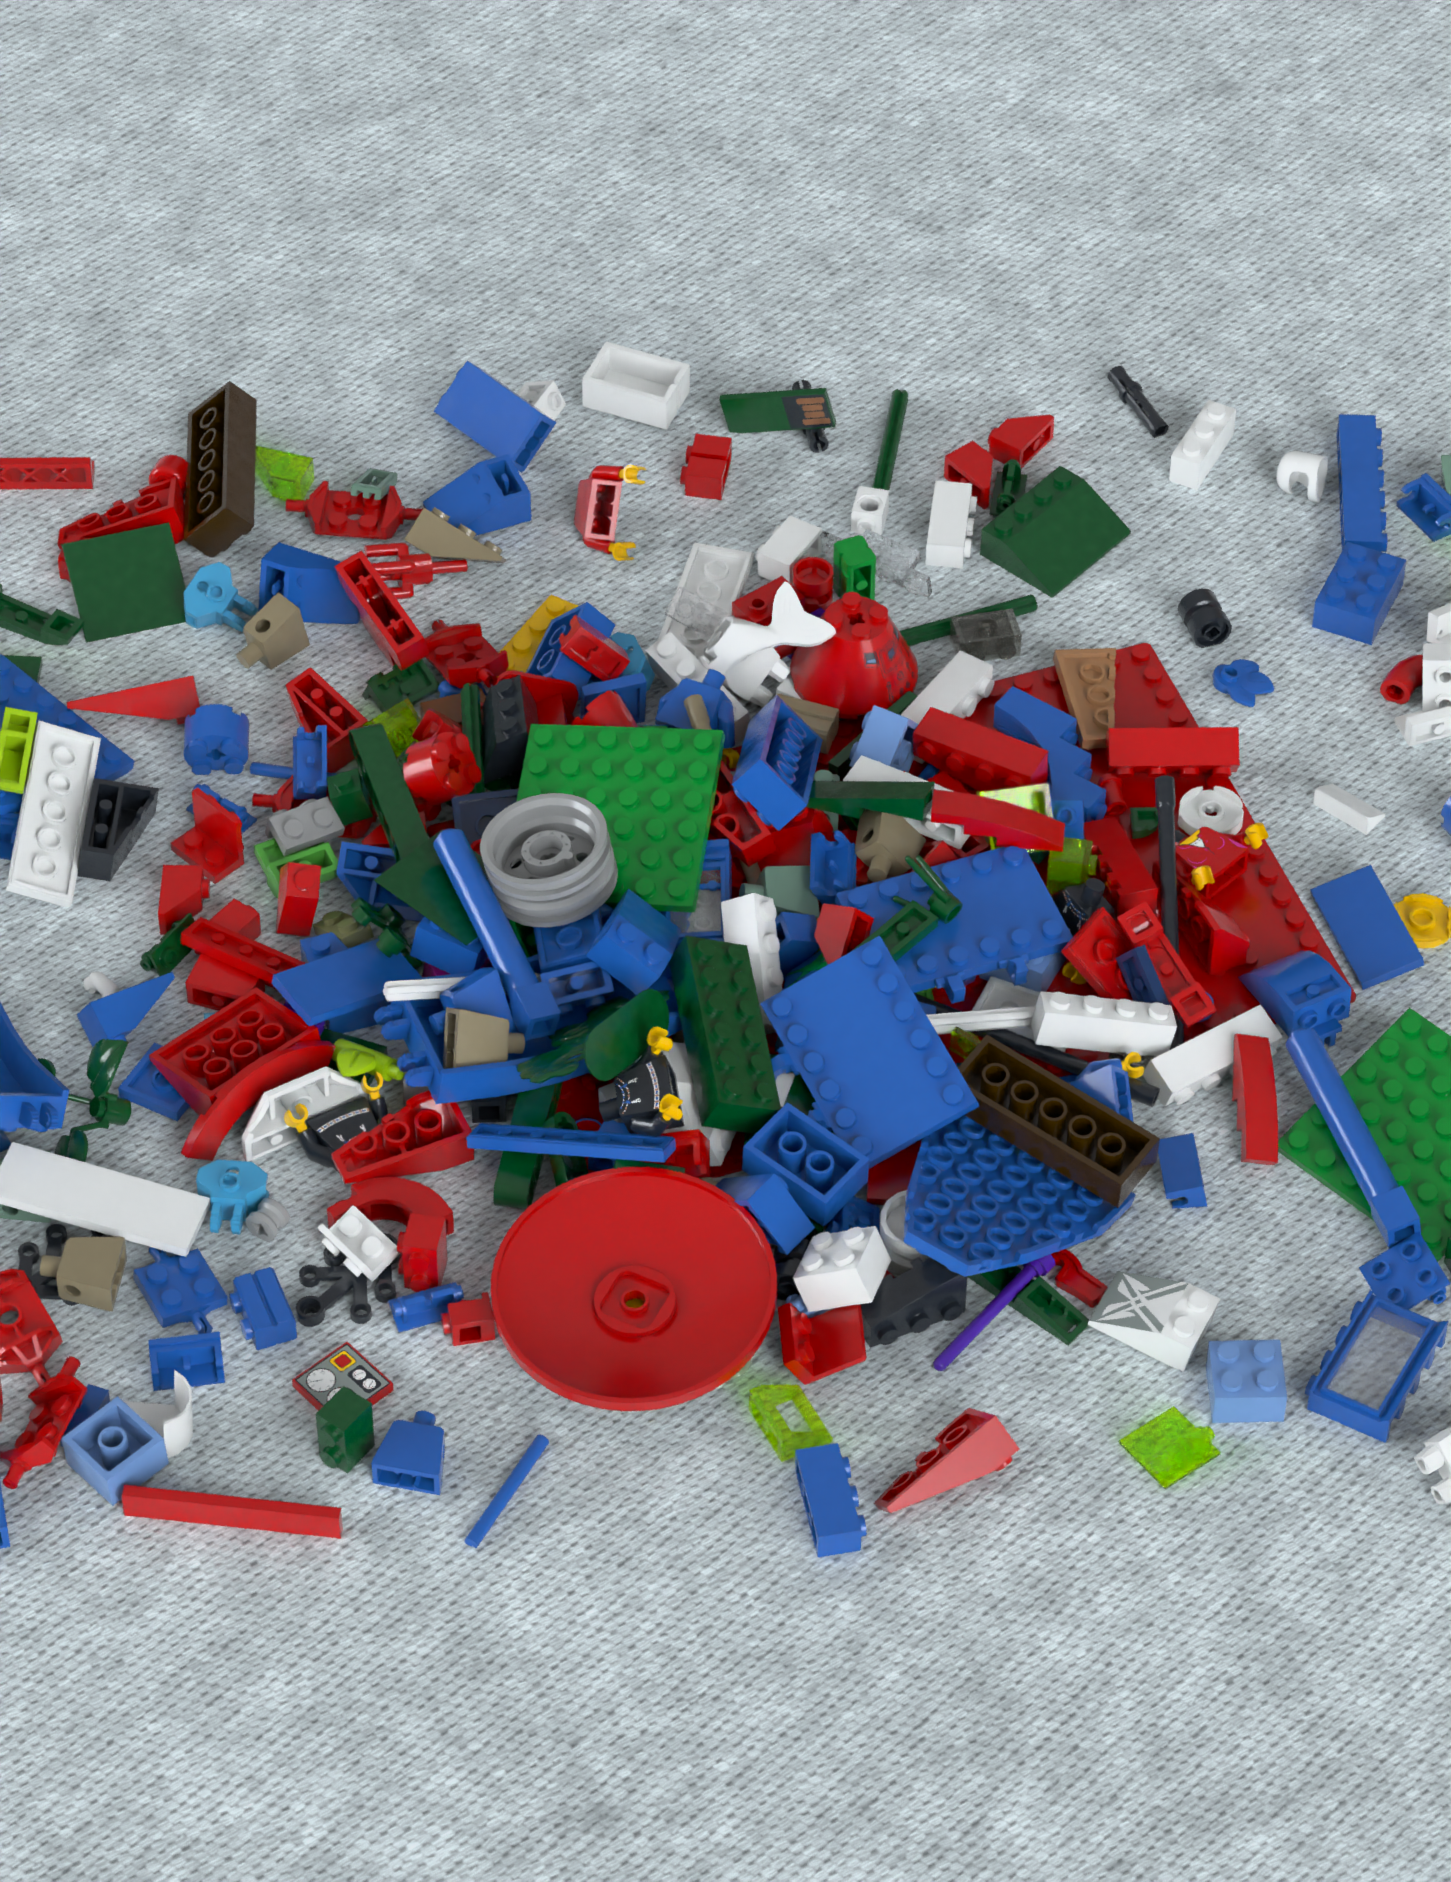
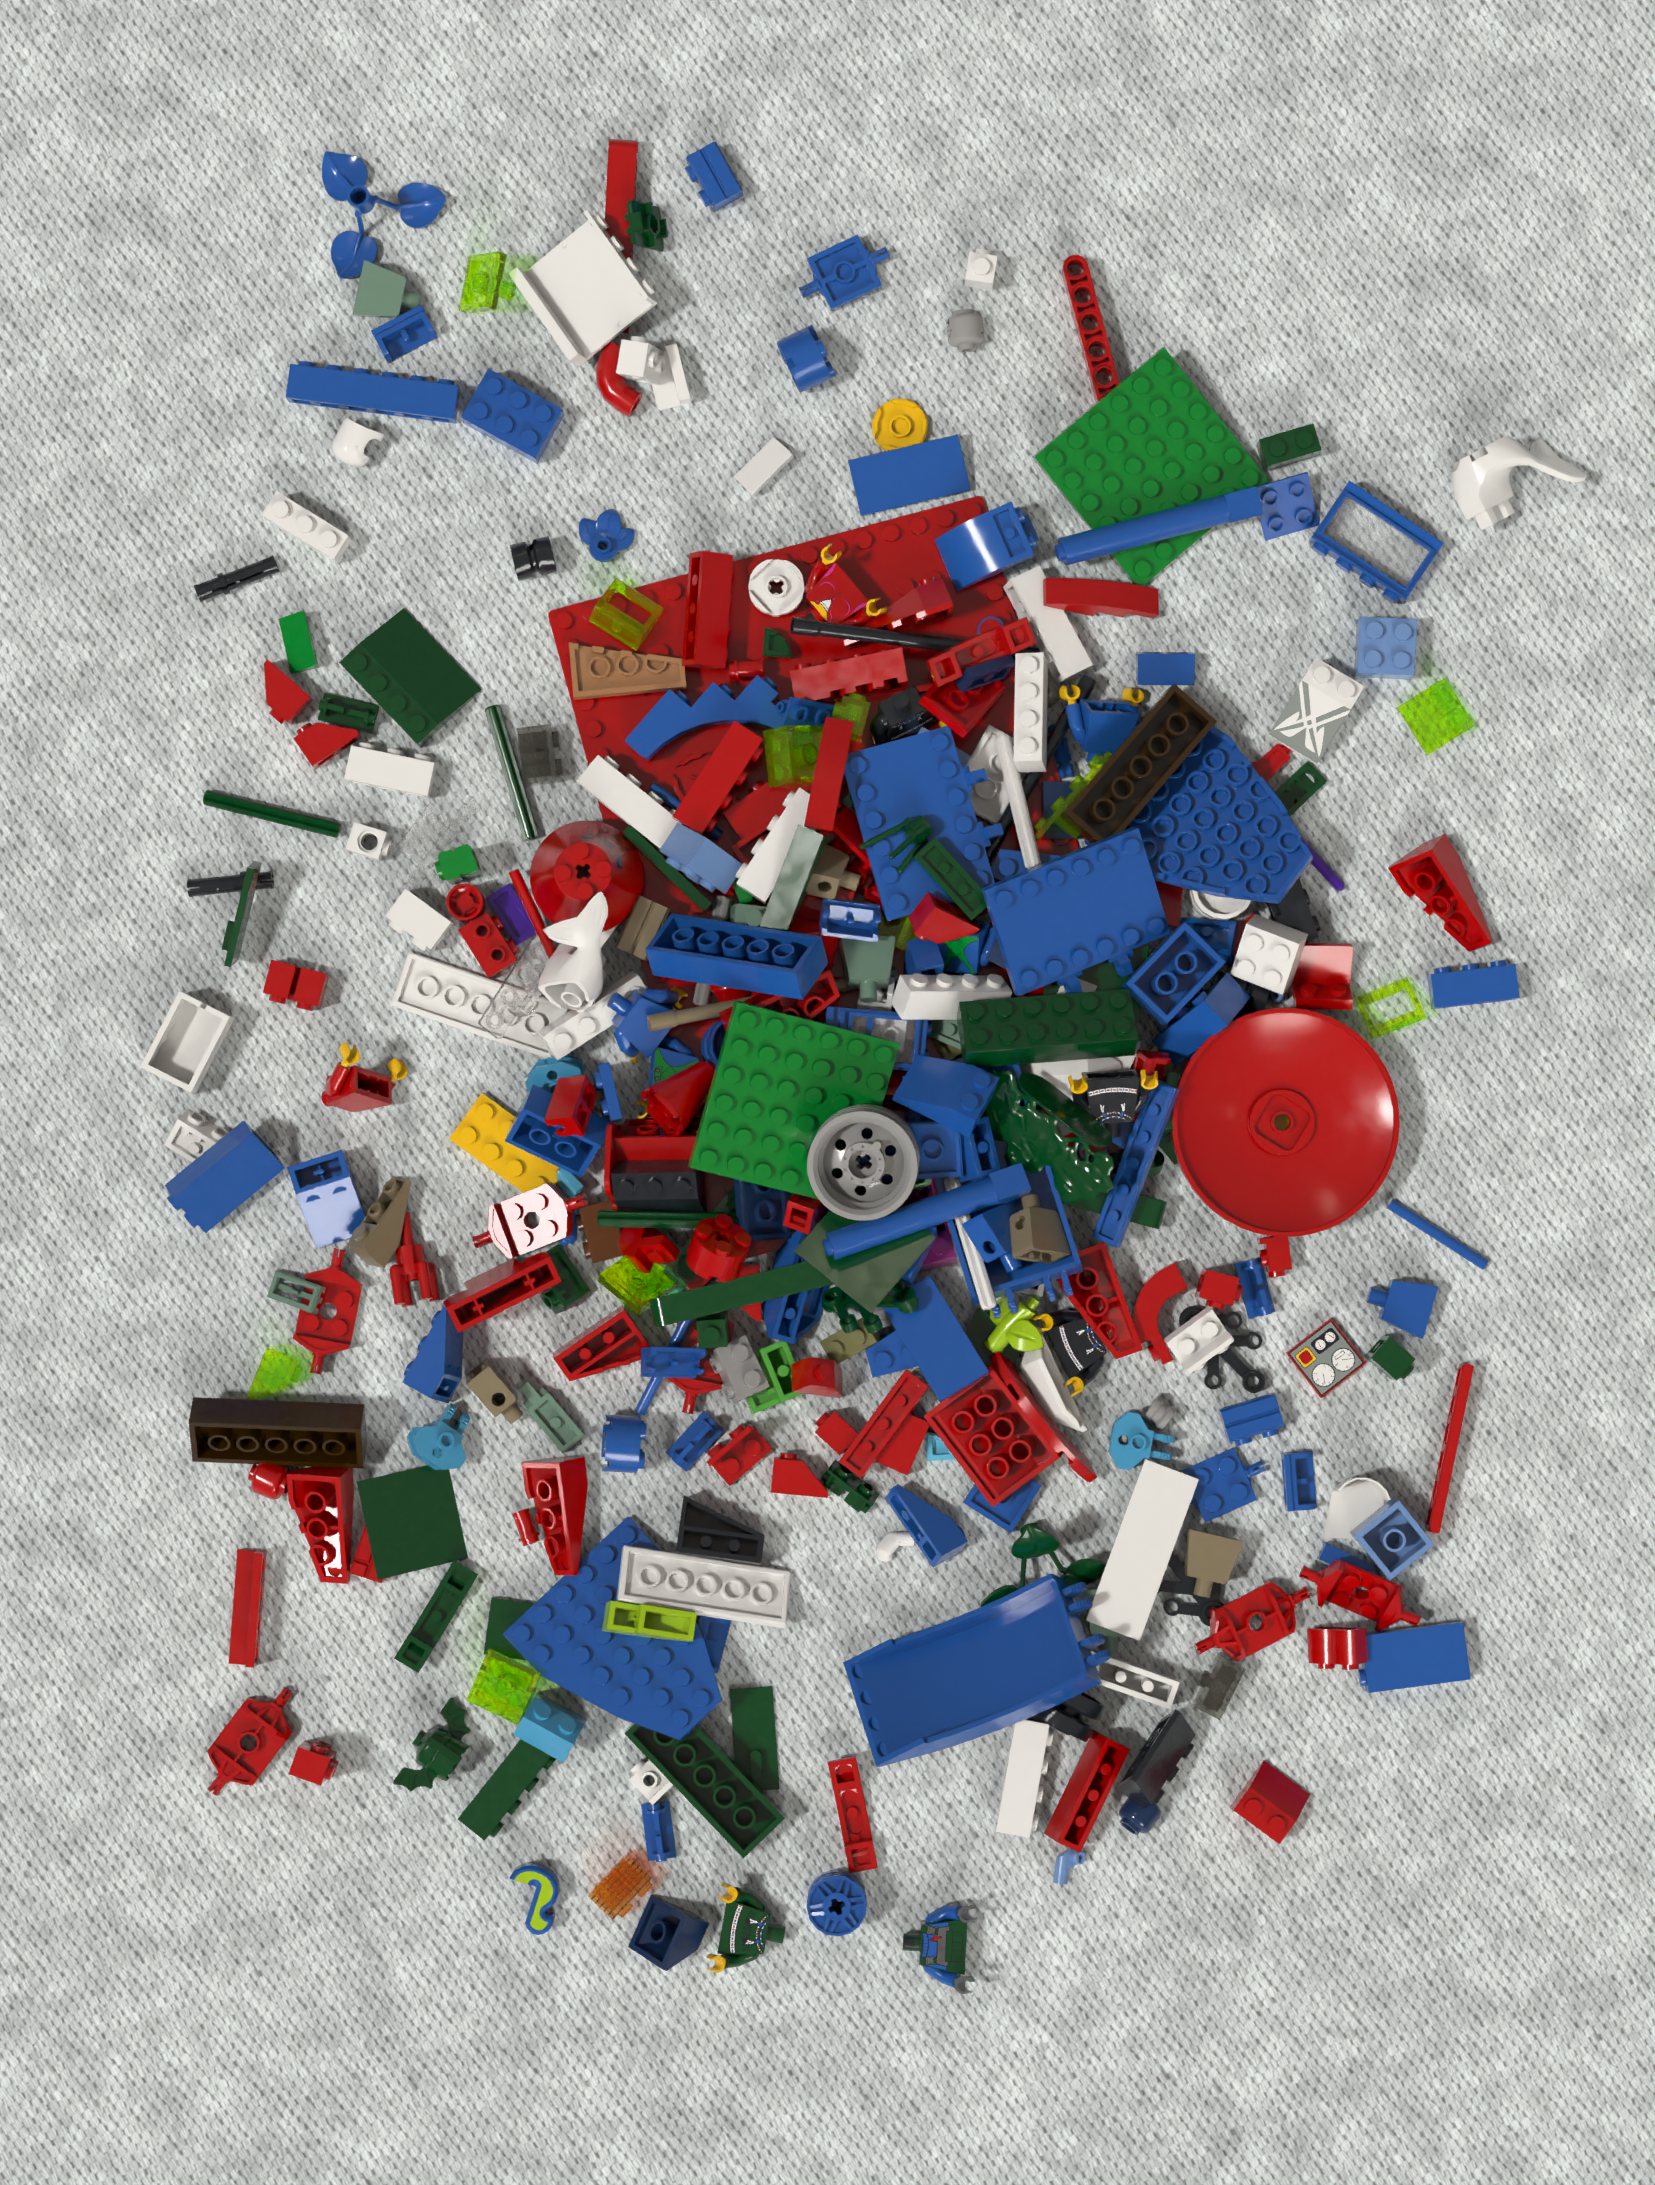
camera: 80 degrees left, 40 degrees up
(120, 679) = (526, 1527): none -> red pin
(249, 687) = (551, 1417): none -> sand green hinge
(1080, 454) = (298, 642): none -> green slope
(1164, 671) = (620, 624): none -> clear neon green tile

